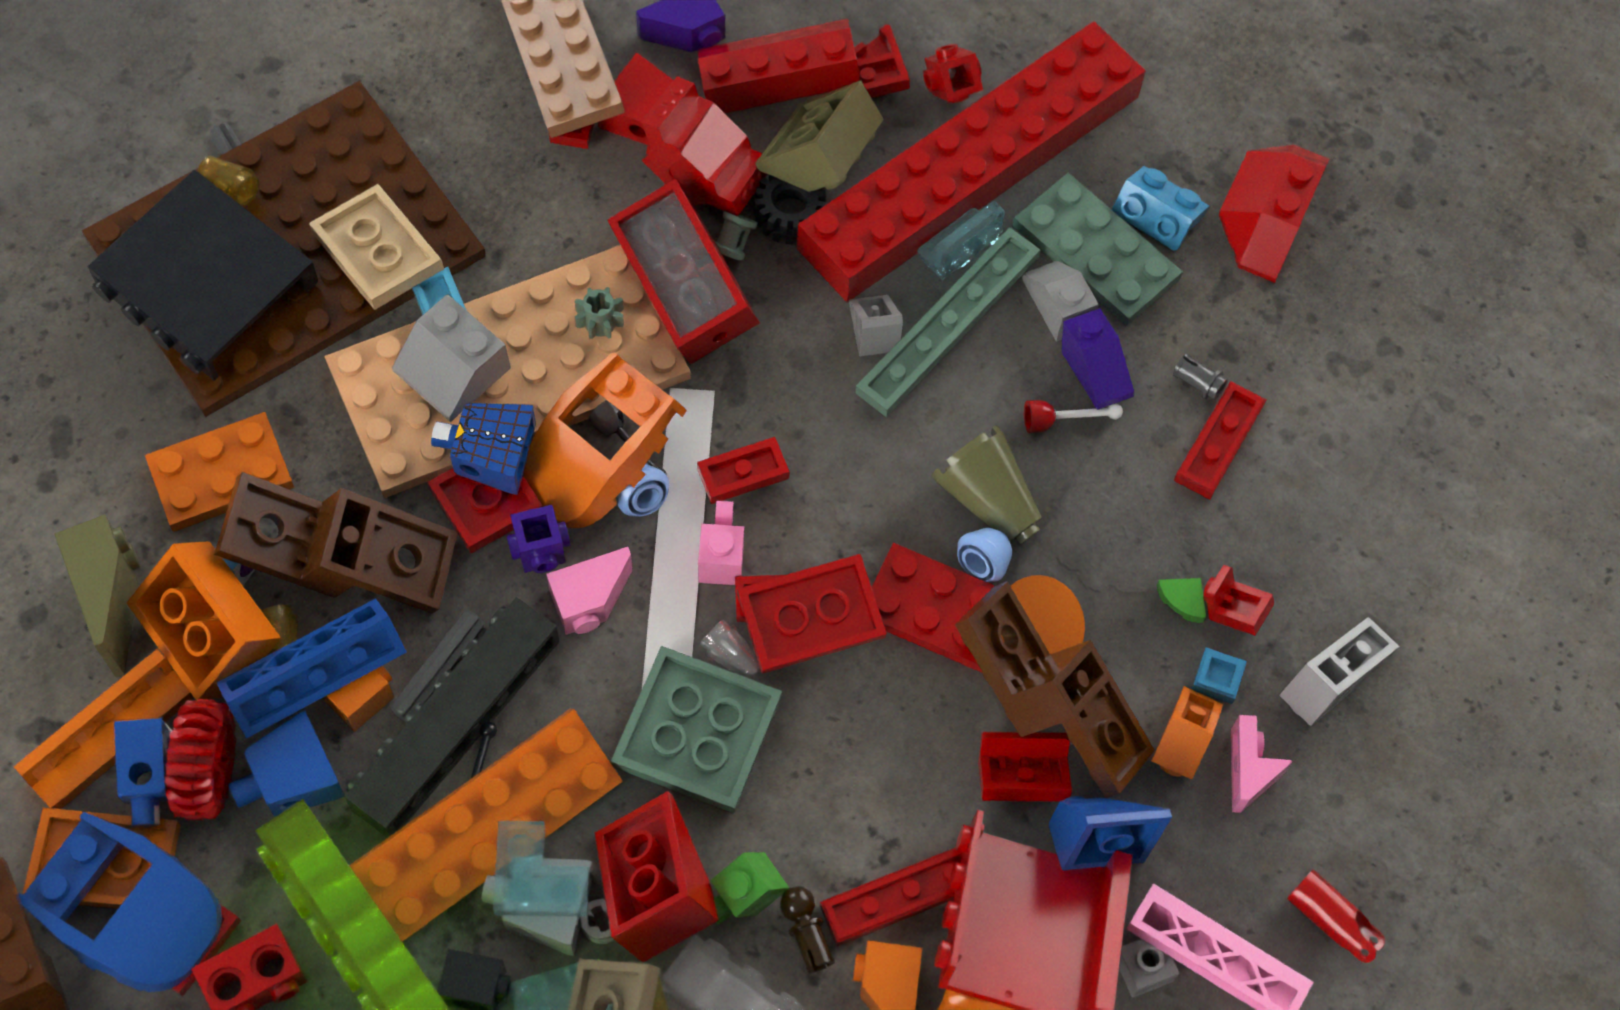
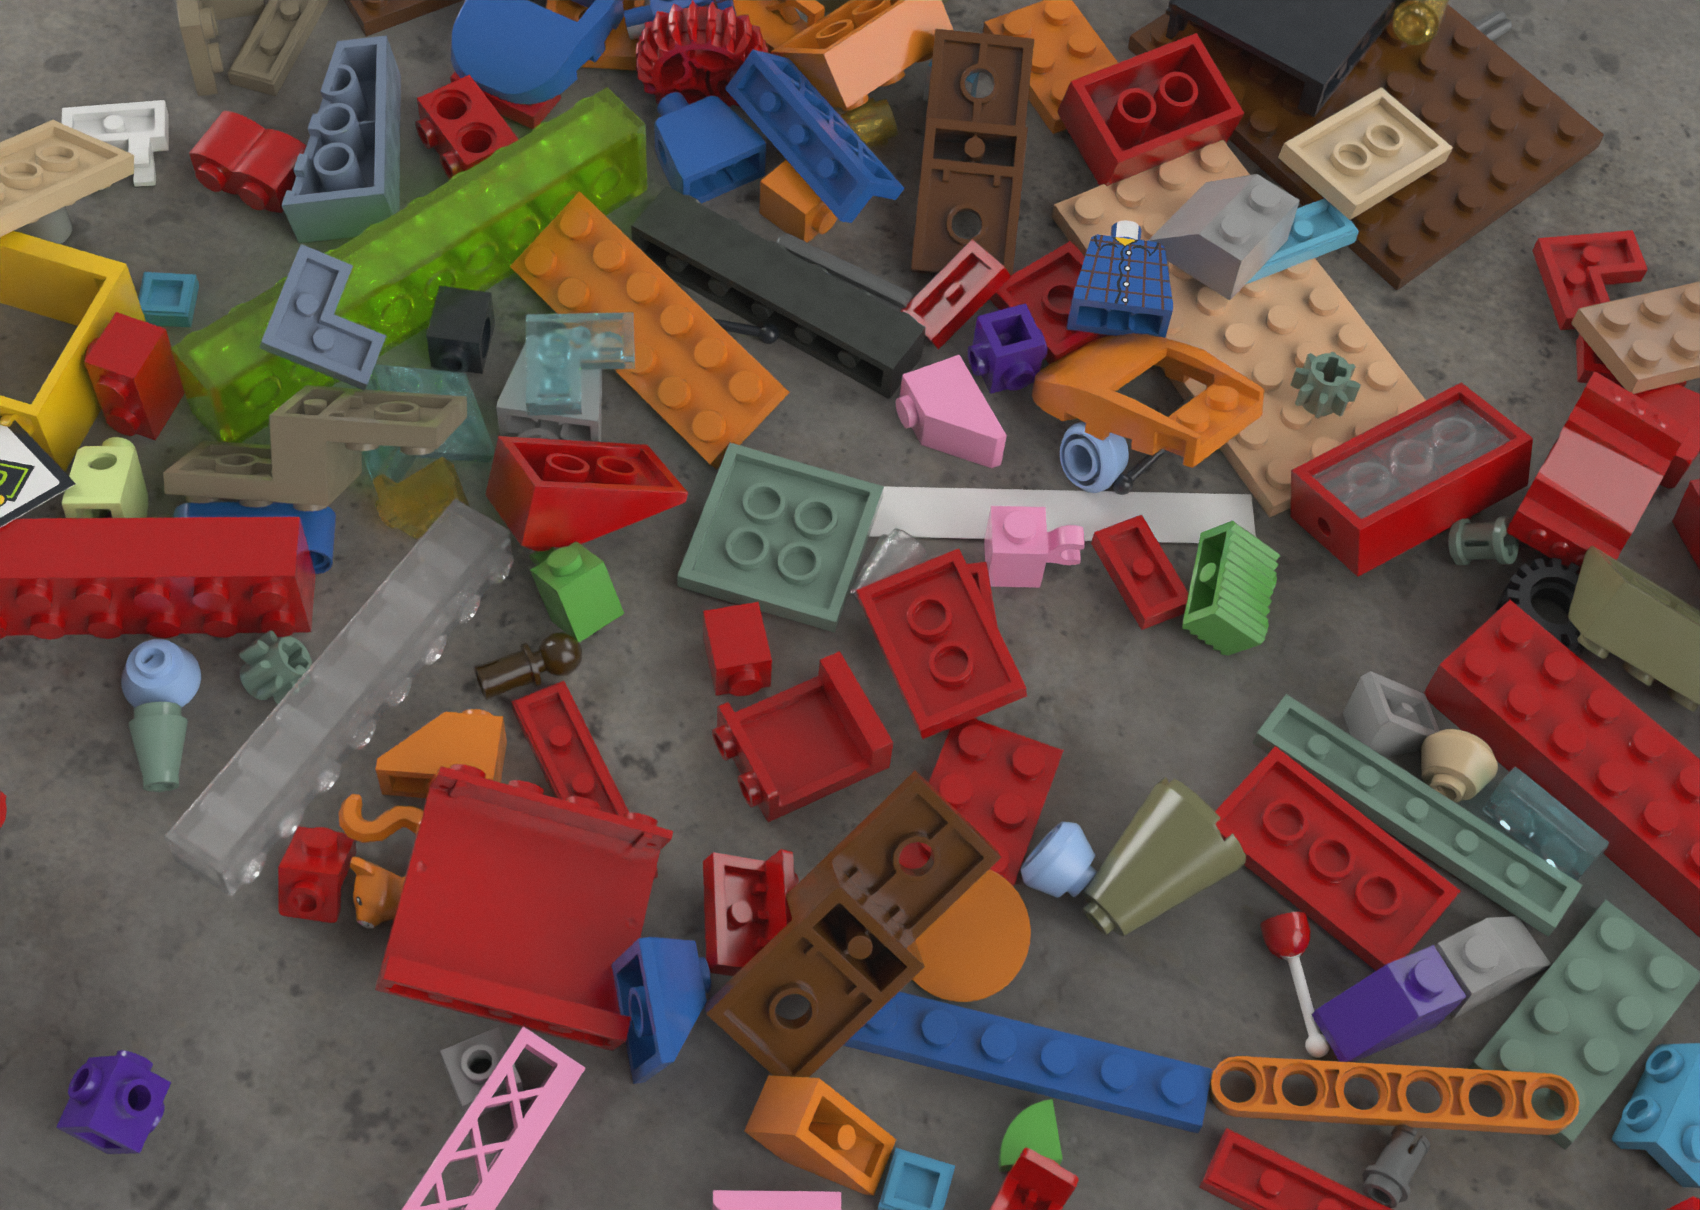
camera: 85 degrees right, 5 degrees down
(306, 401) = (1149, 110): none -> red brick
(475, 574) = (957, 293): none -> plate
(487, 129) = (1580, 266): none -> red plate
(767, 408) = (1231, 589): none -> bright green brick
(802, 766) = (737, 649): none -> red brick
(877, 724) = (804, 741): none -> red panel
(916, 287) = (1457, 763): none -> tan cone
(983, 379) = (1333, 861): none -> red plate
(1131, 575) = (1038, 1060): none -> blue plate
(1151, 368) = (1392, 1104): none -> orange beam

